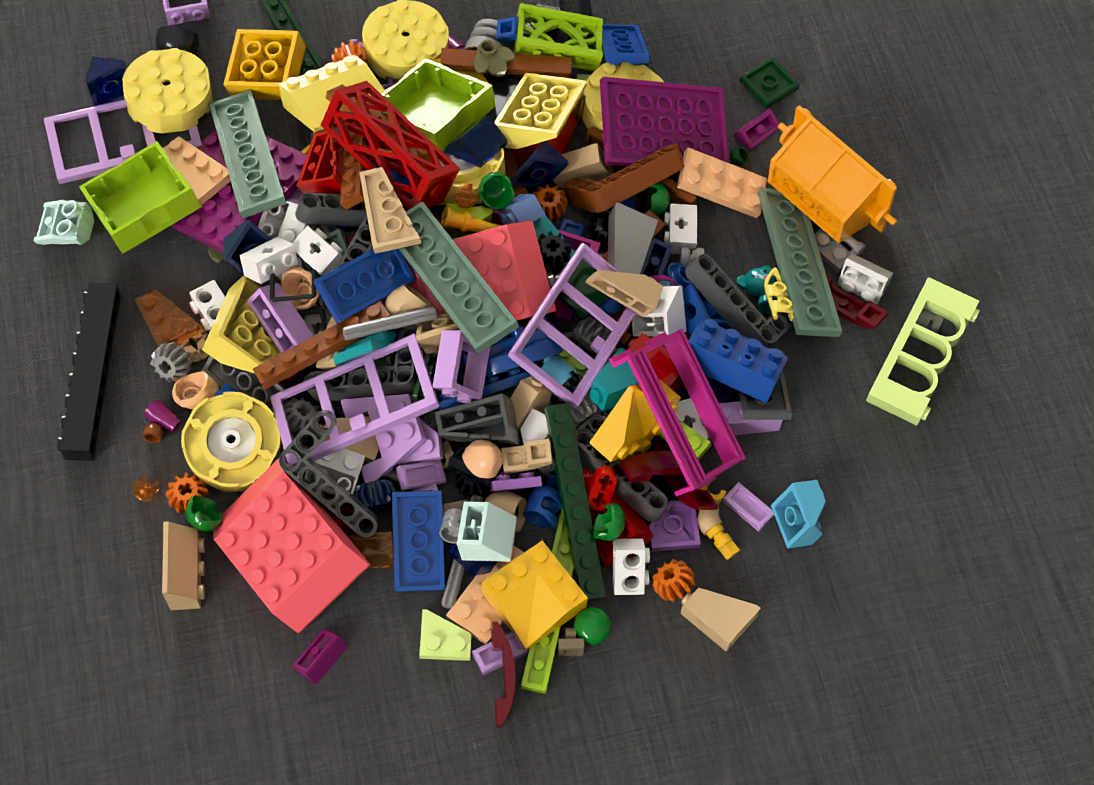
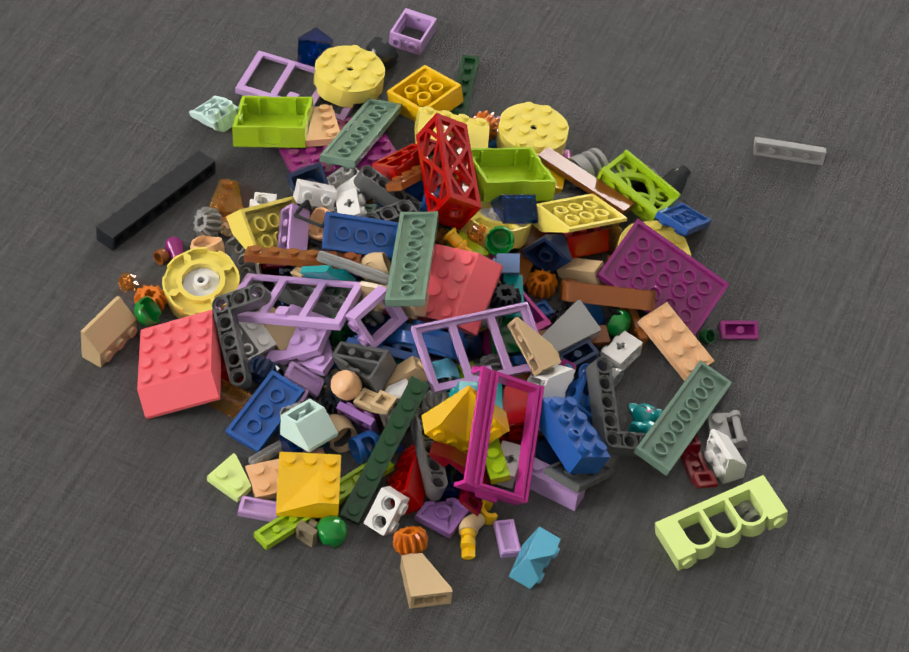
camera: 35 degrees right, 15 degrees down
(320, 656) = (146, 438): magenta slope -> none
(386, 217) = (407, 203): tan wing -> none
(492, 58) = (575, 170): olive plate -> none
(501, 643) = (233, 535): dark red slope -> none
(507, 30) = (603, 160): blue slope -> none
(596, 486) = (405, 448): red beam -> none
(610, 524) = (395, 476): green hair -> none
(769, 82) = (774, 307): dark green plate -> none
(778, 289) = (647, 420): light yellow piece -> none
(829, 180) = (746, 378): light orange piece -> none

